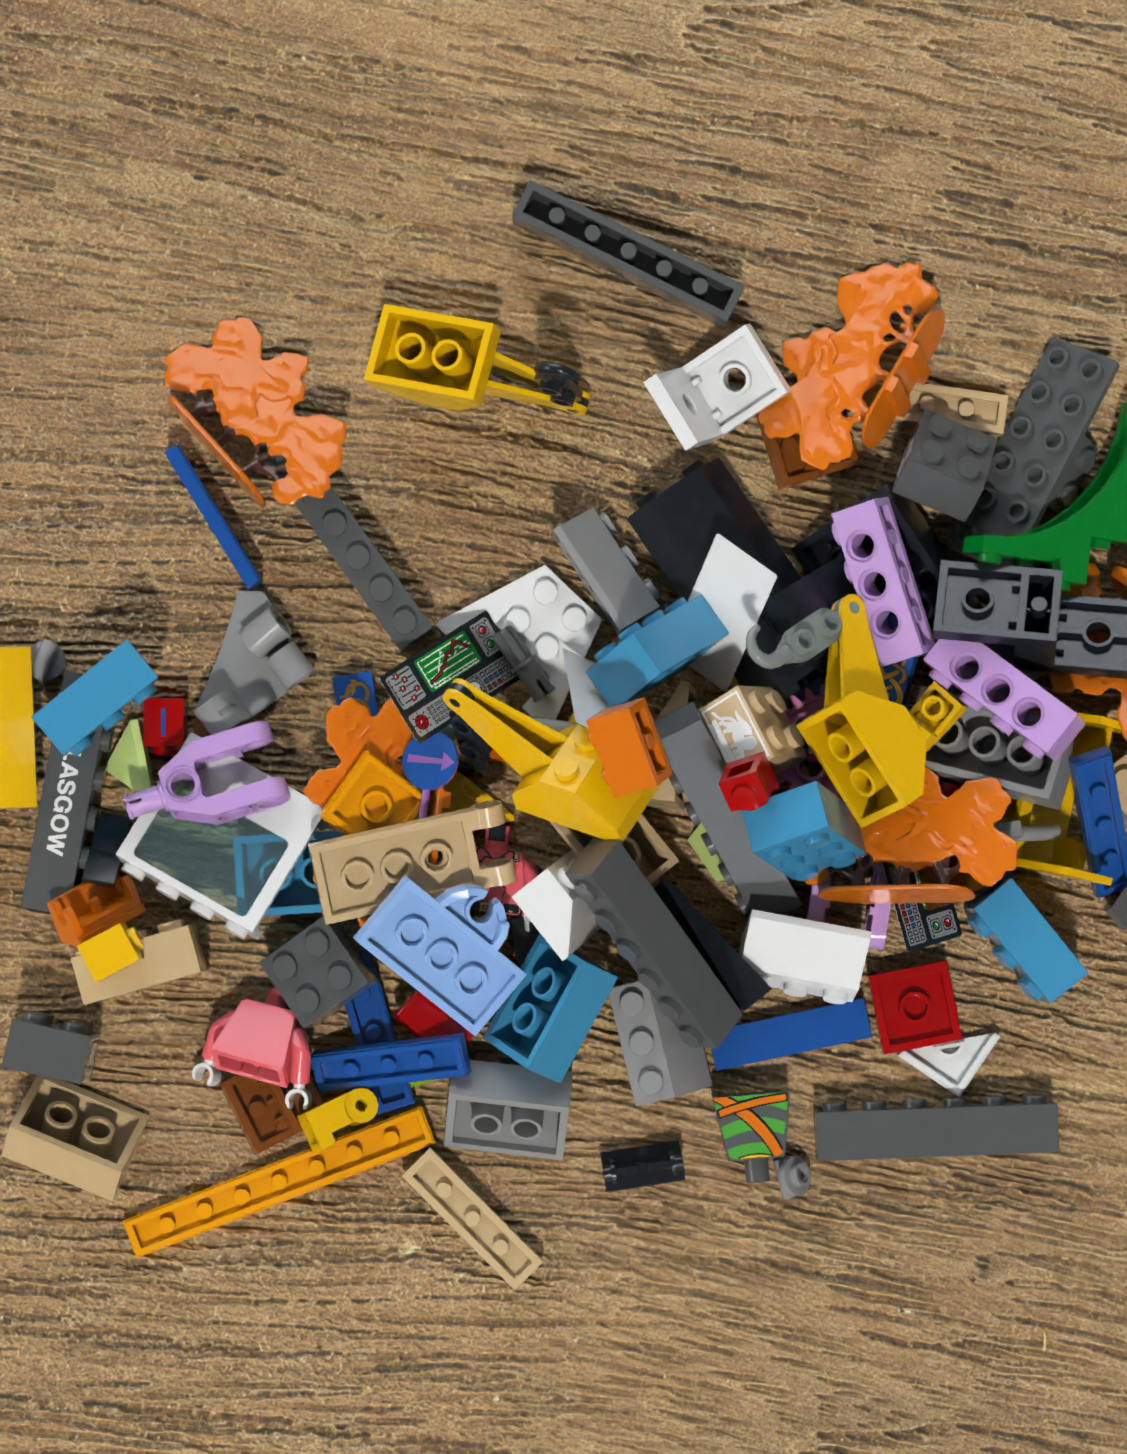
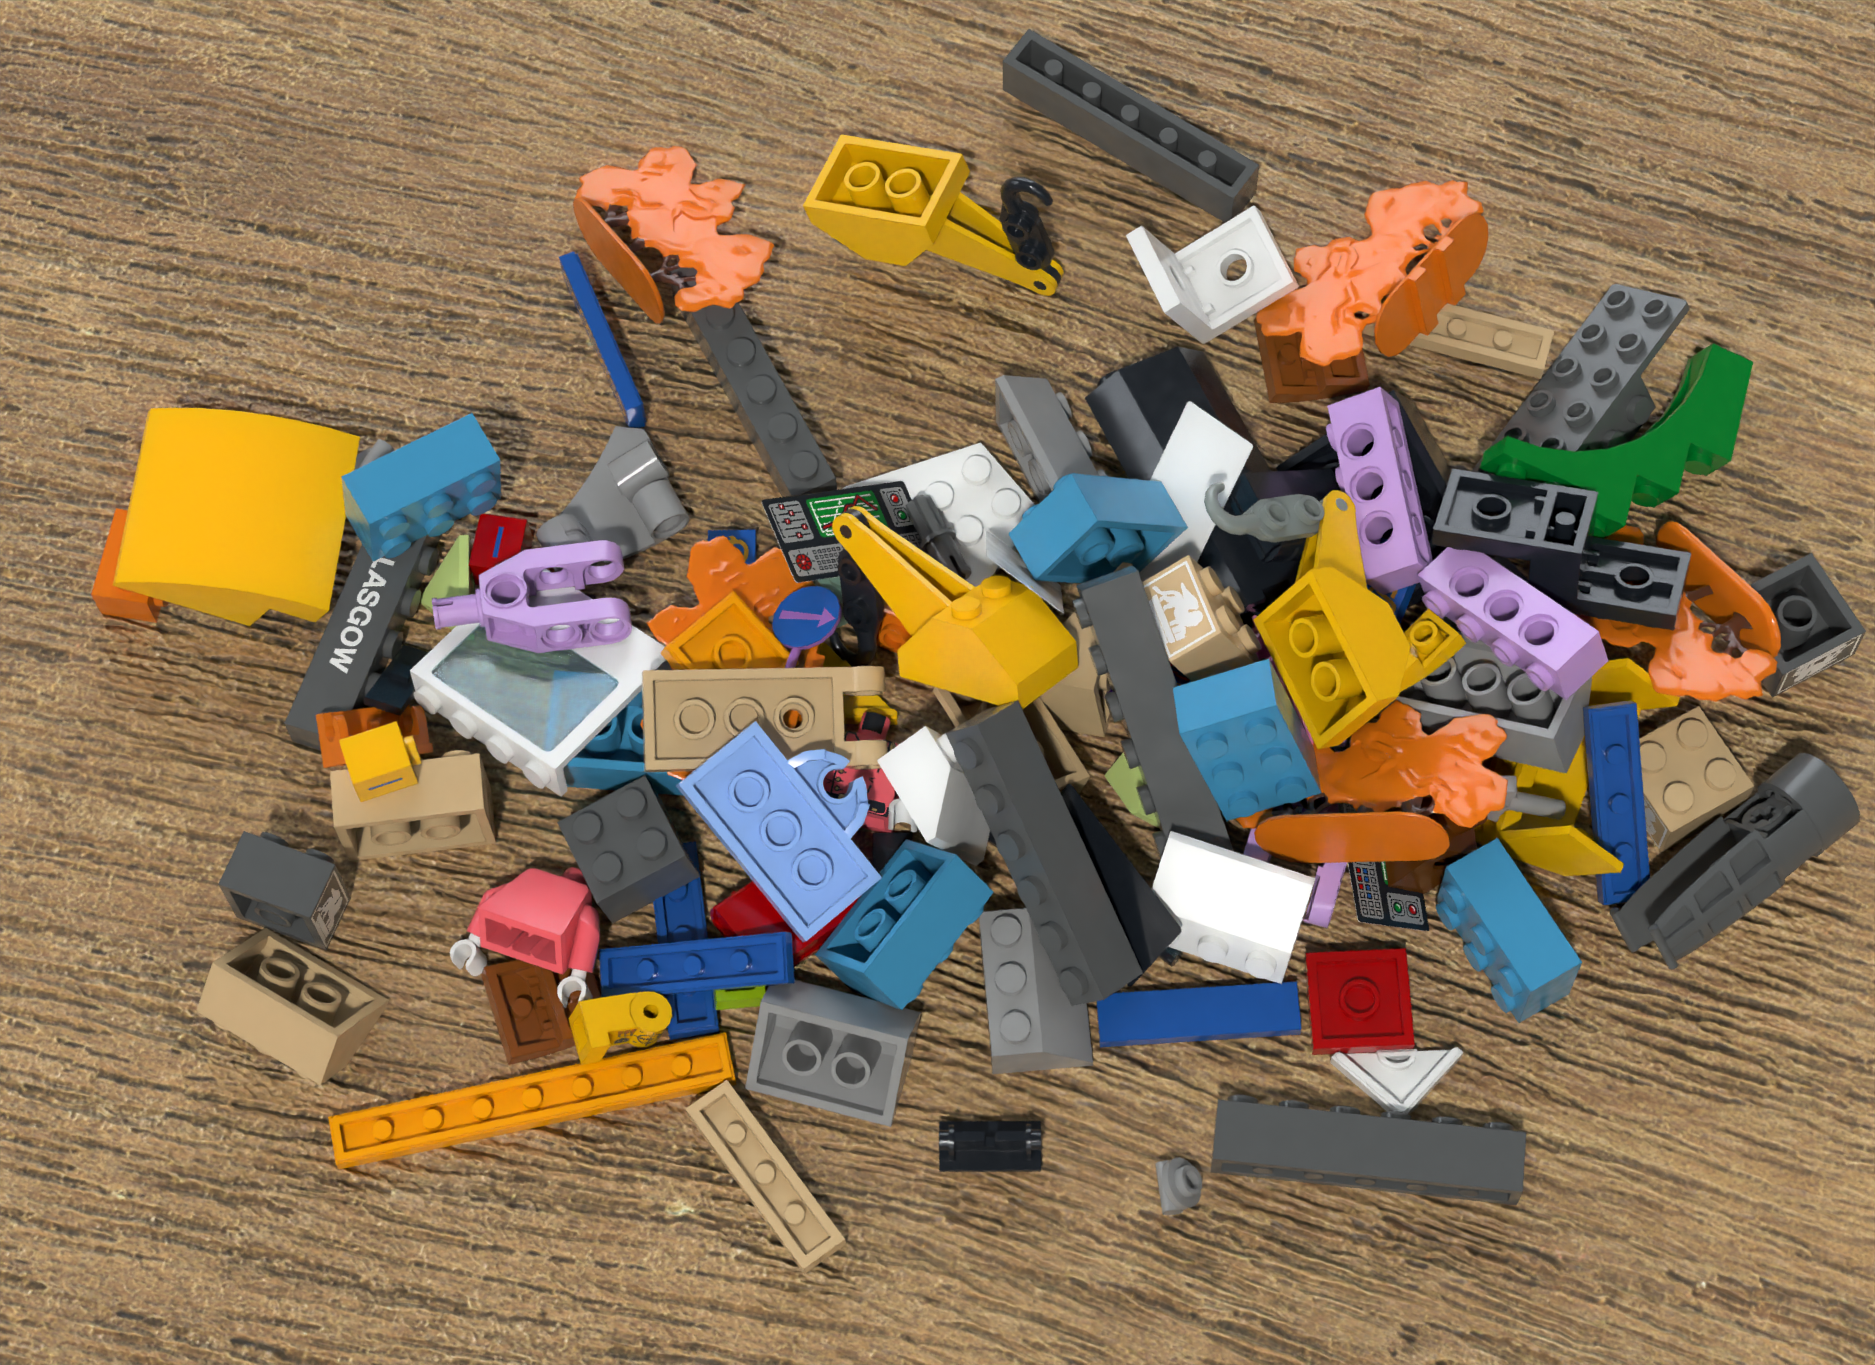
camera: 10 degrees right, 20 degrees down
(628, 747) = (1045, 586): orange brick -> none
(749, 789) = (1186, 655): red brick -> none
(753, 1129) = (1136, 1115): torso -> none
(945, 465) = (1470, 384): dark grey brick -> none

